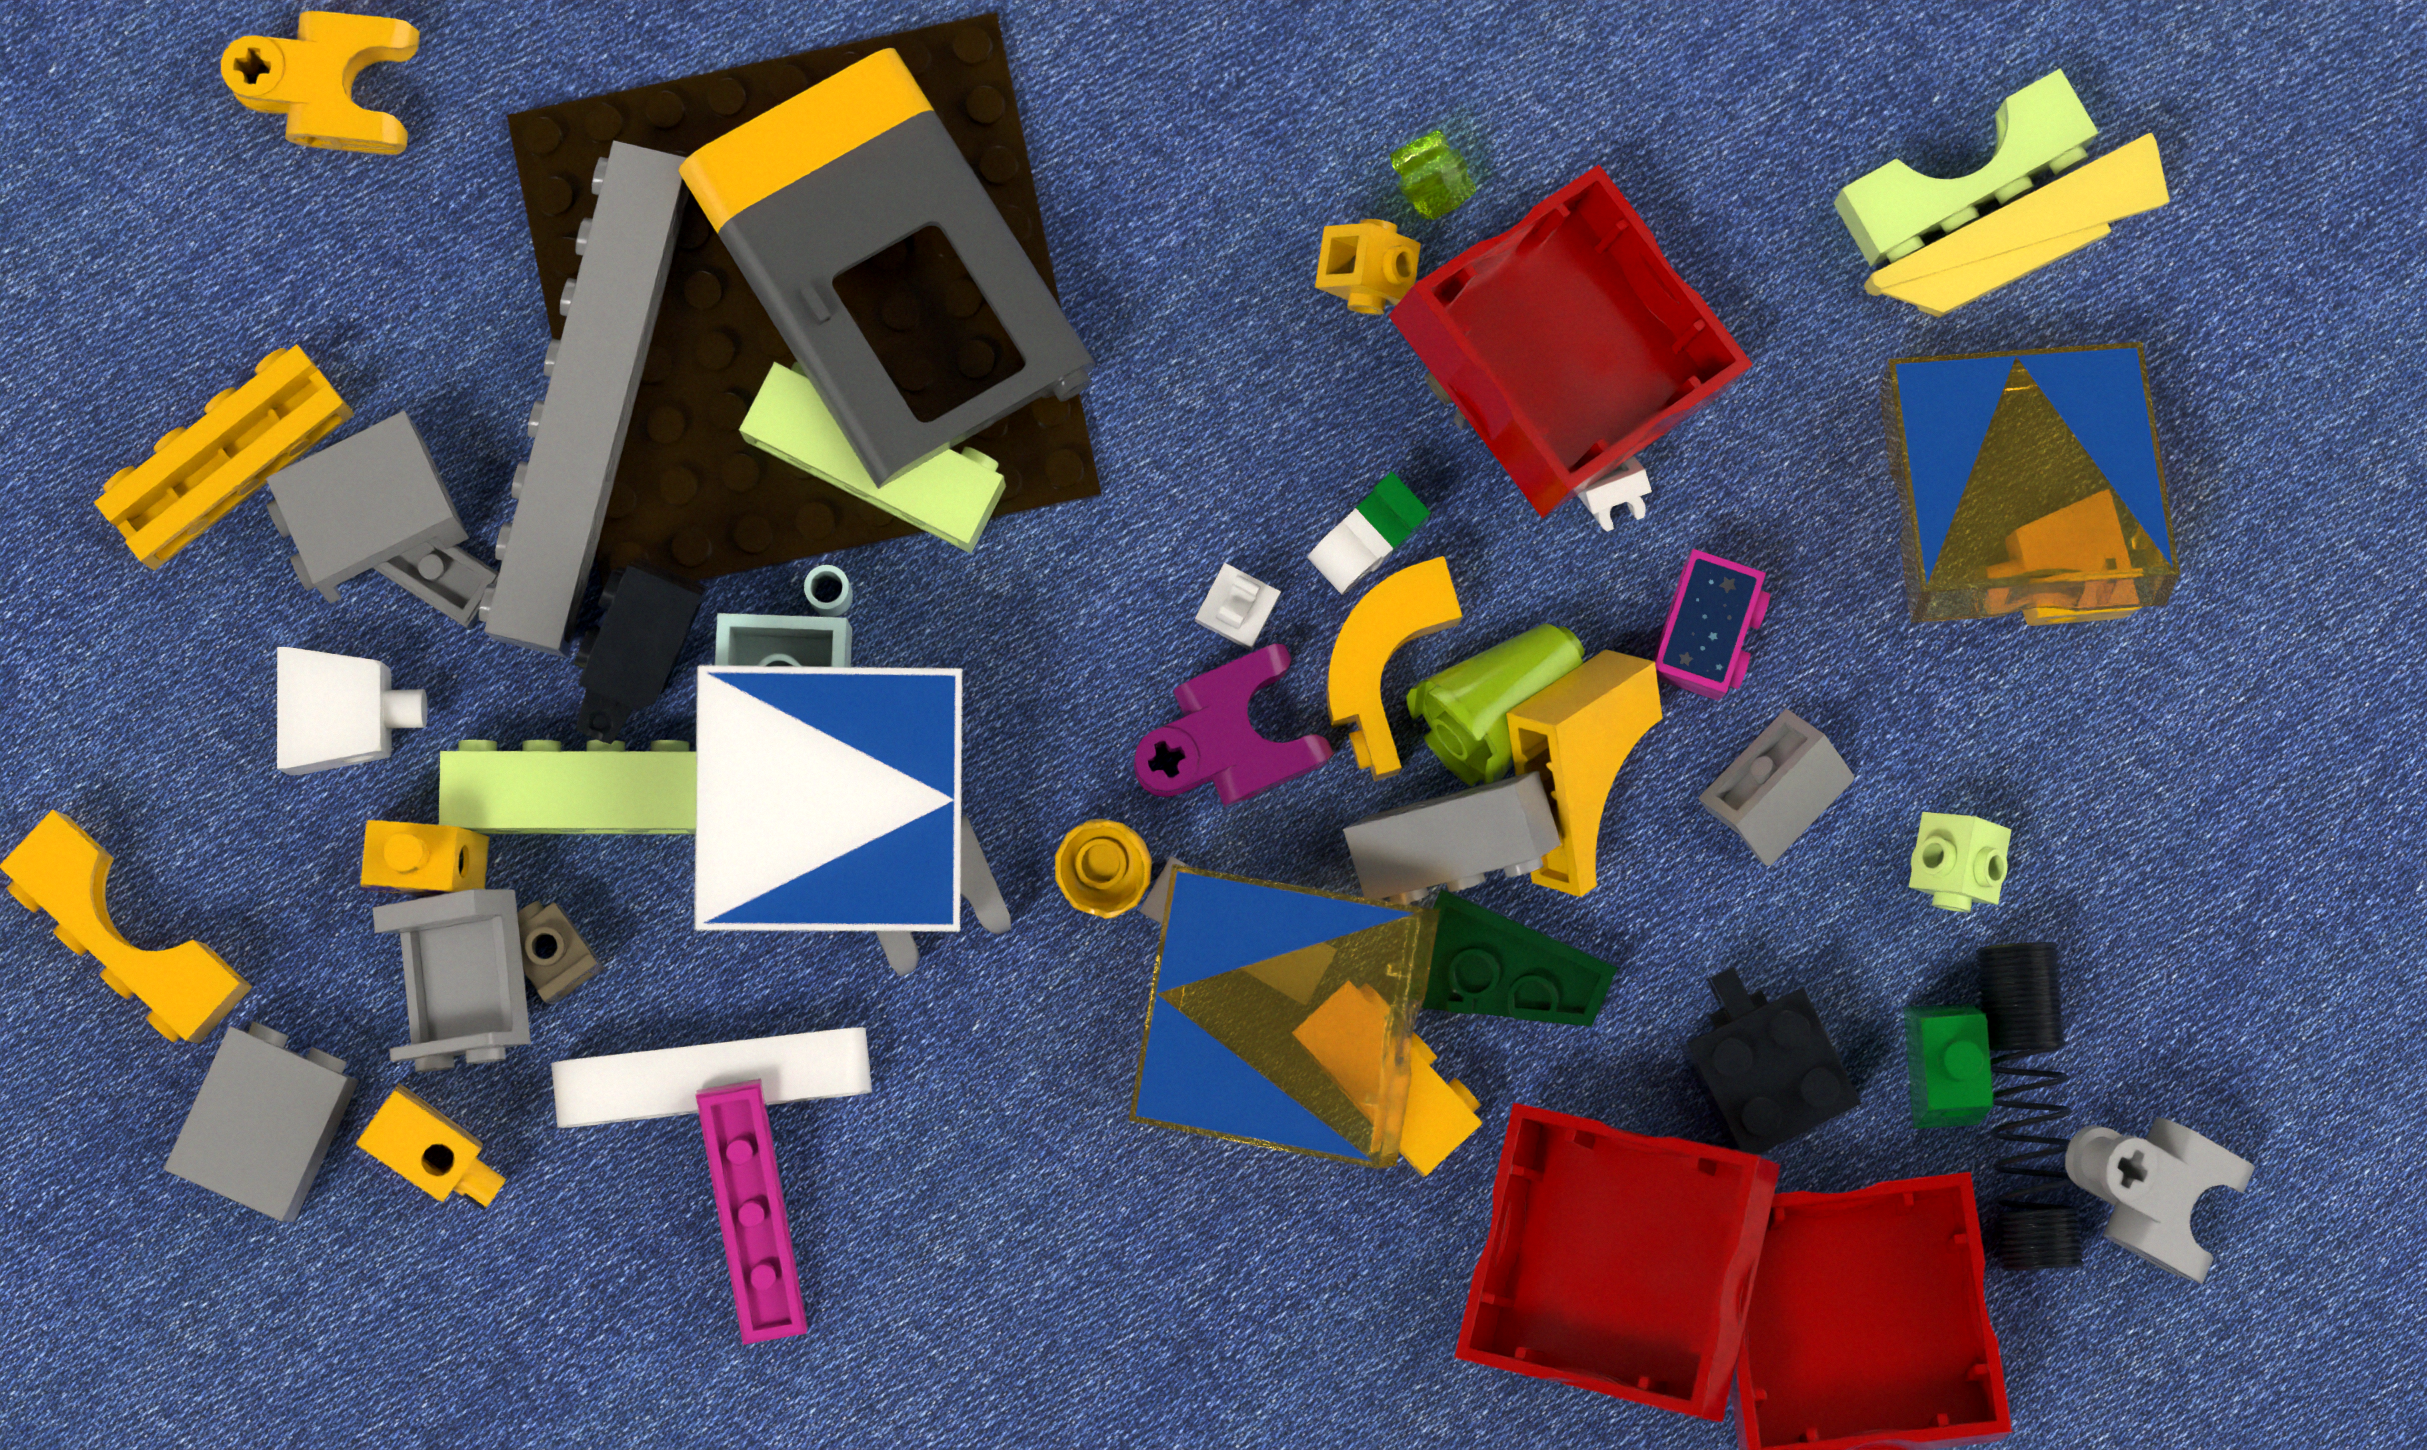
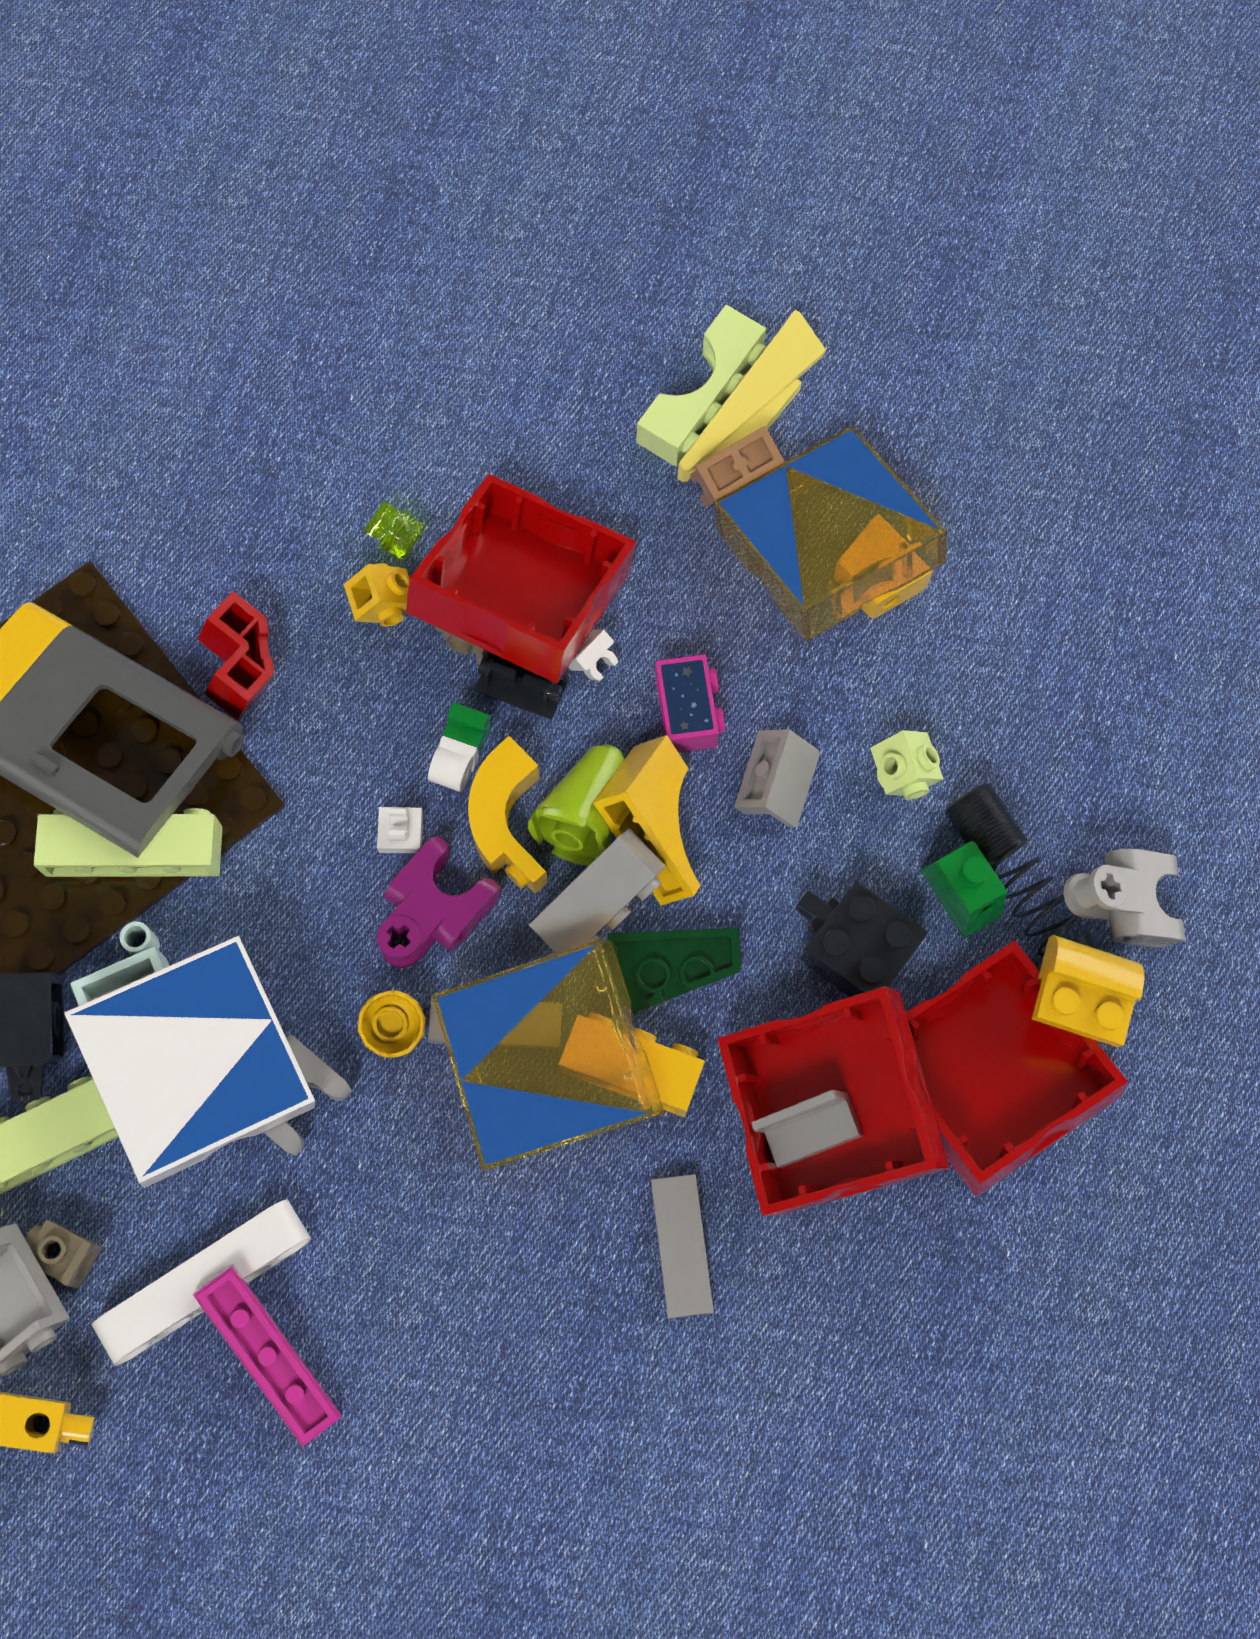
camera: 25 degrees left, 10 degrees down
(1149, 236) = (239, 638): none -> red brick
(1334, 1339) = (681, 1246): none -> light grey tile
(1489, 488) = (519, 686): none -> black hinge
(1574, 1279) = (810, 1127): none -> light grey panel
(1950, 321) = (736, 465): none -> medium nougat hinge
(2025, 1289) = (1087, 991): none -> yellow brick

